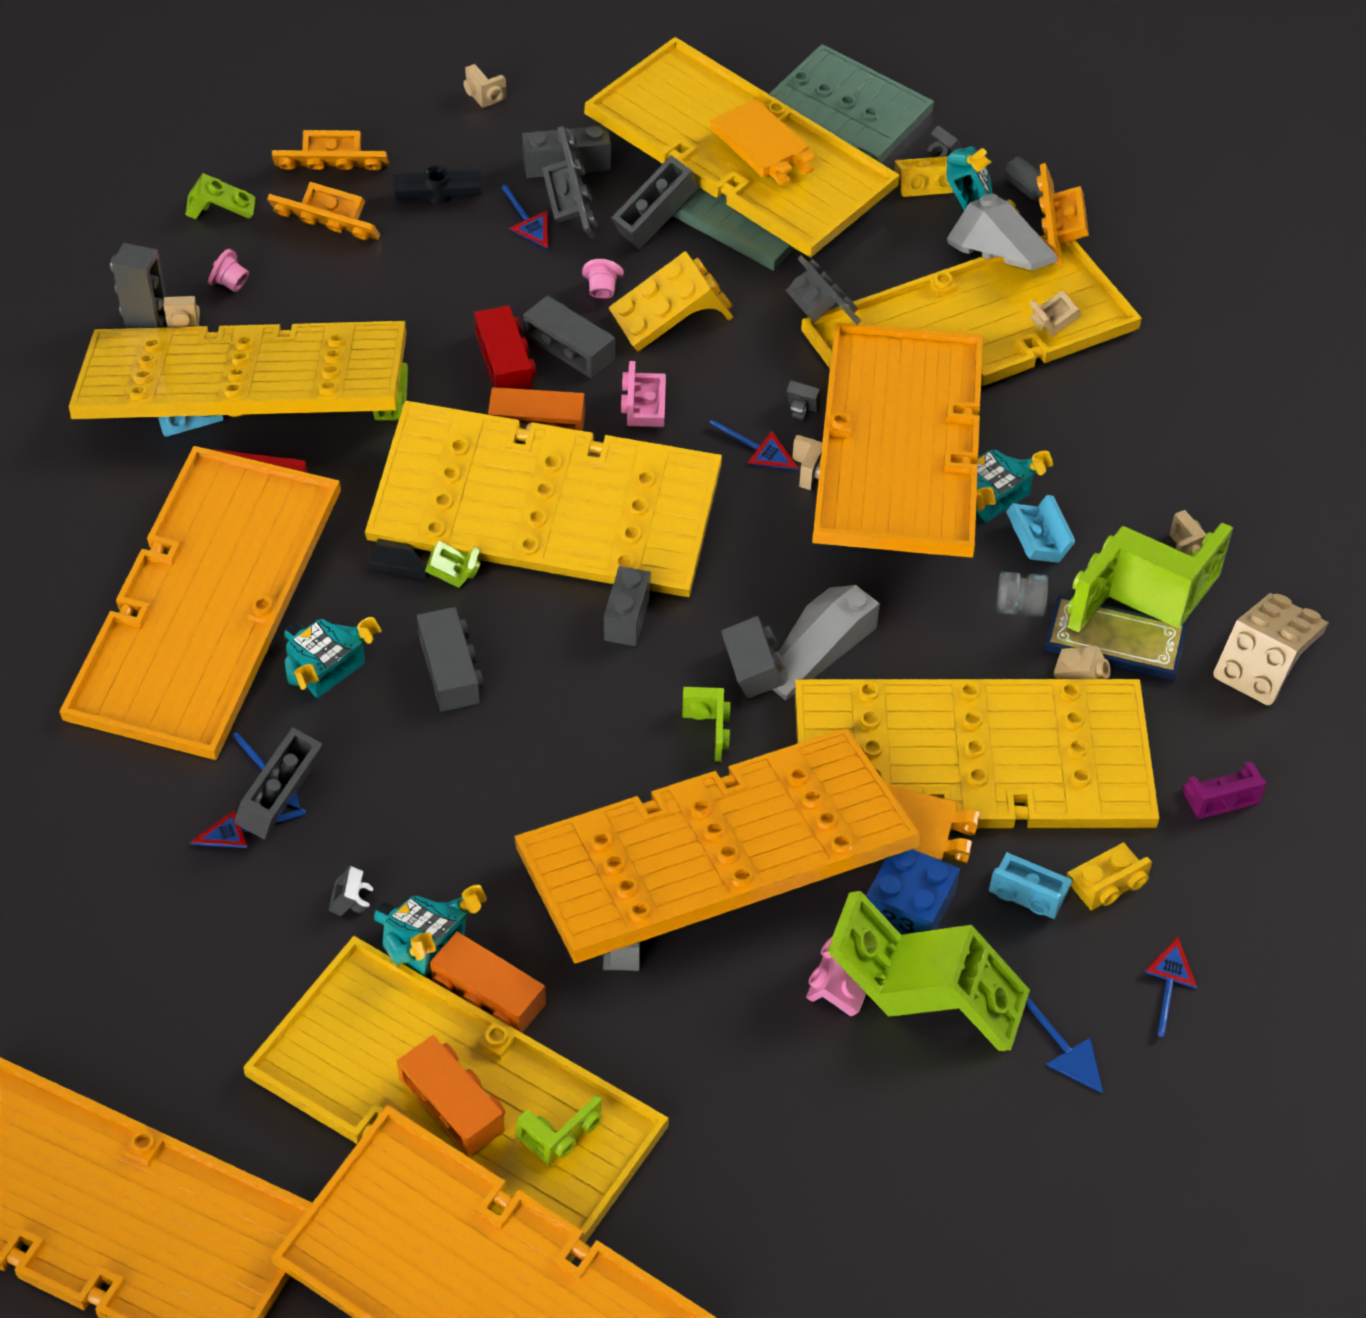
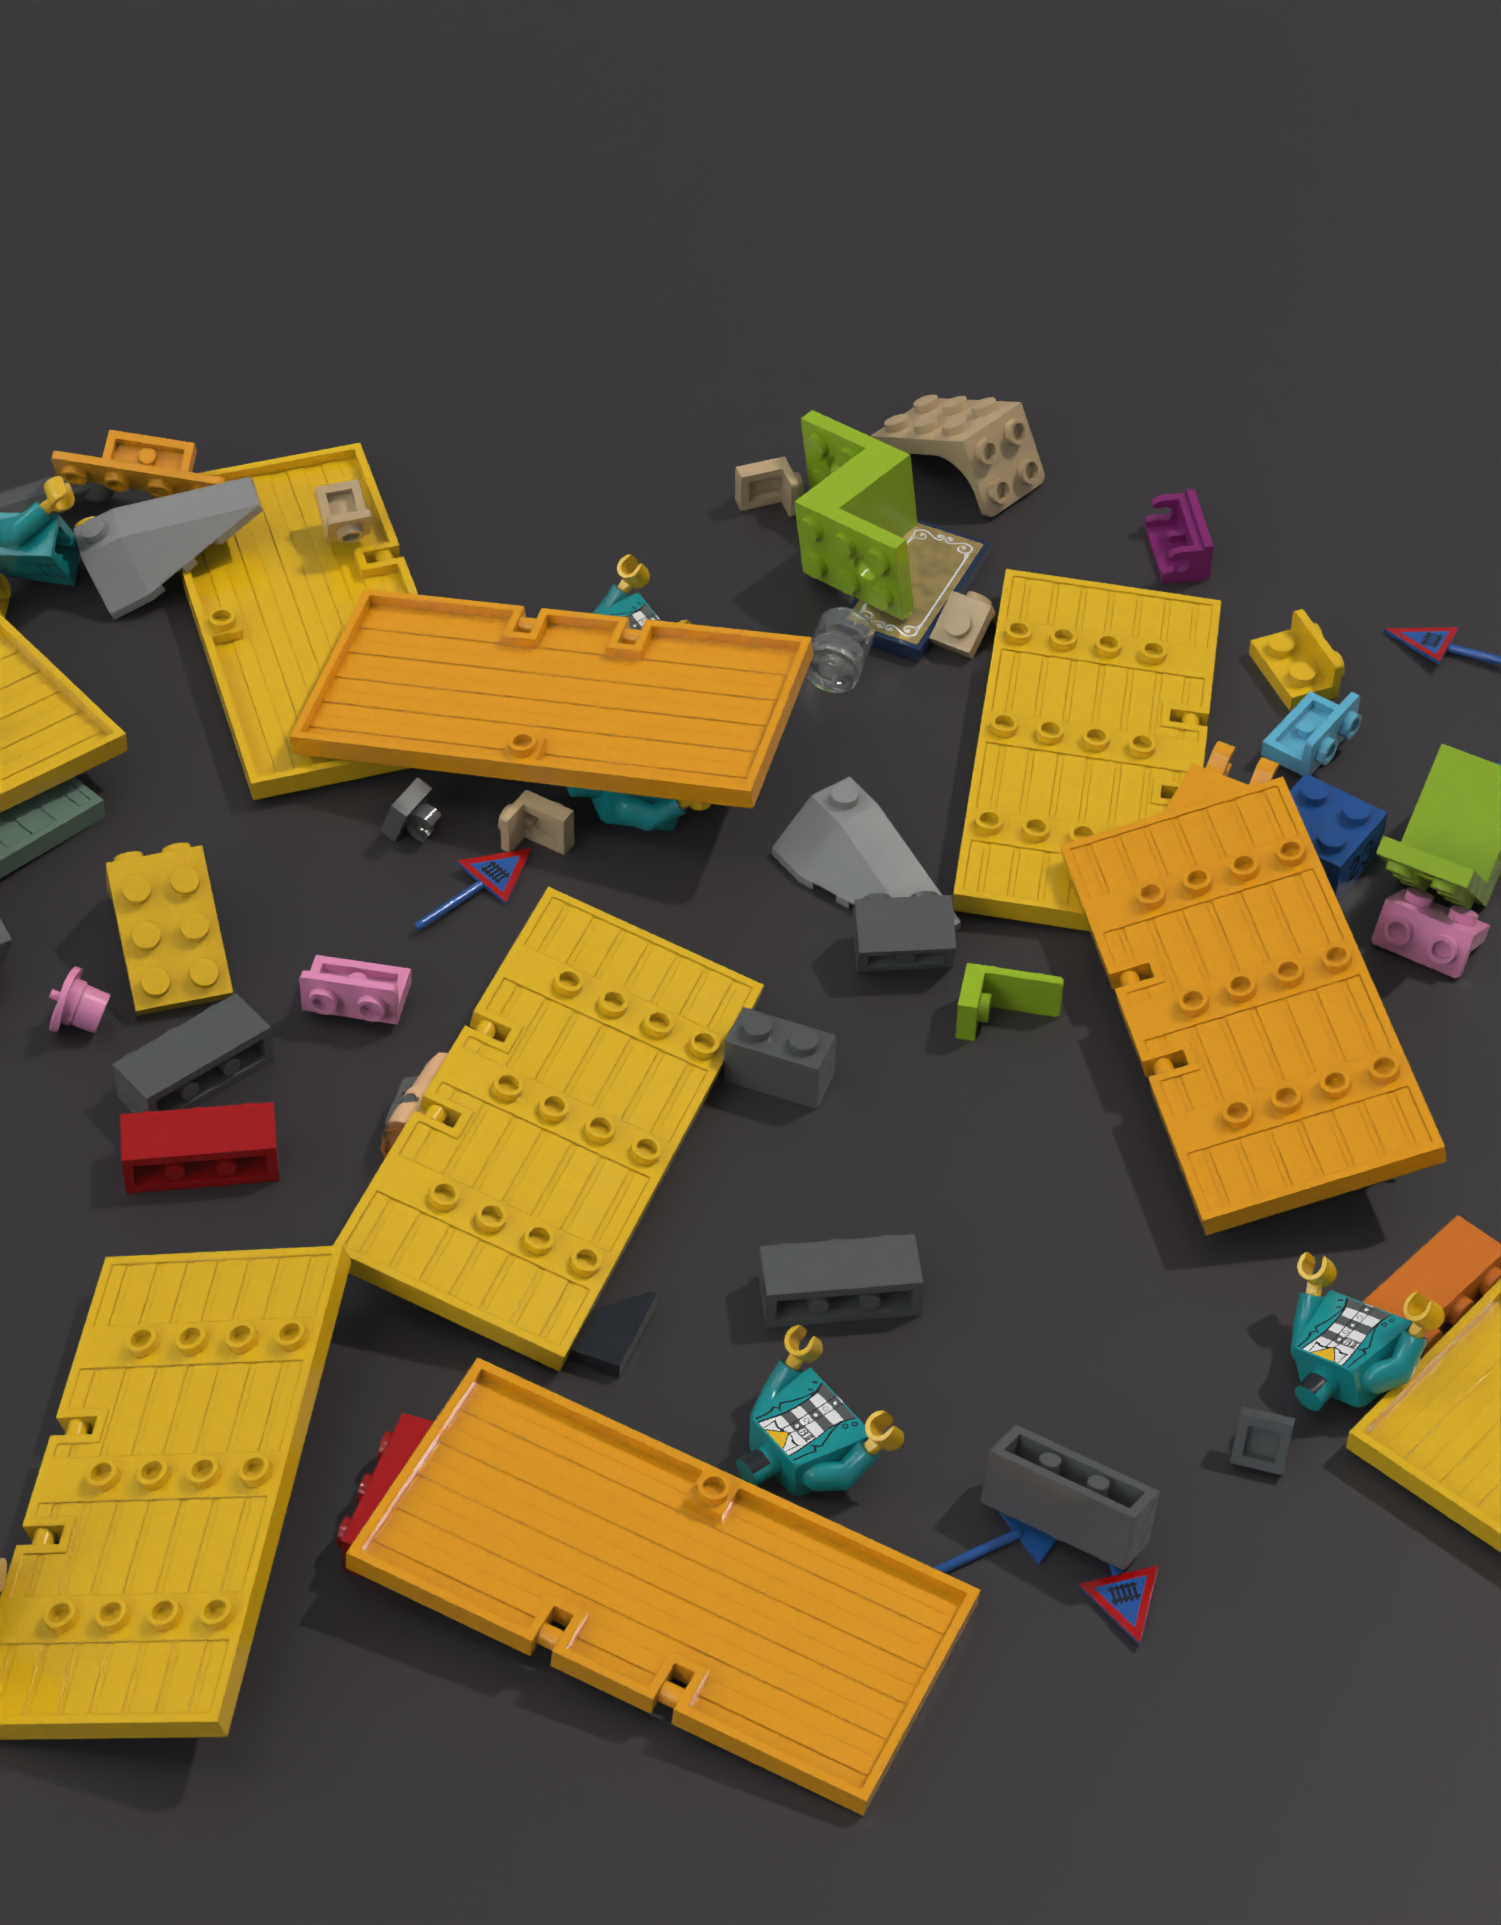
camera: 80 degrees left, 5 degrees down
(452, 564) = (652, 1252): lime bracket -> none
(539, 407) = (350, 1121): orange brick -> none
(818, 292) = (214, 754): dark grey bracket -> none
(1042, 530) = (726, 604): medium azure bracket -> none

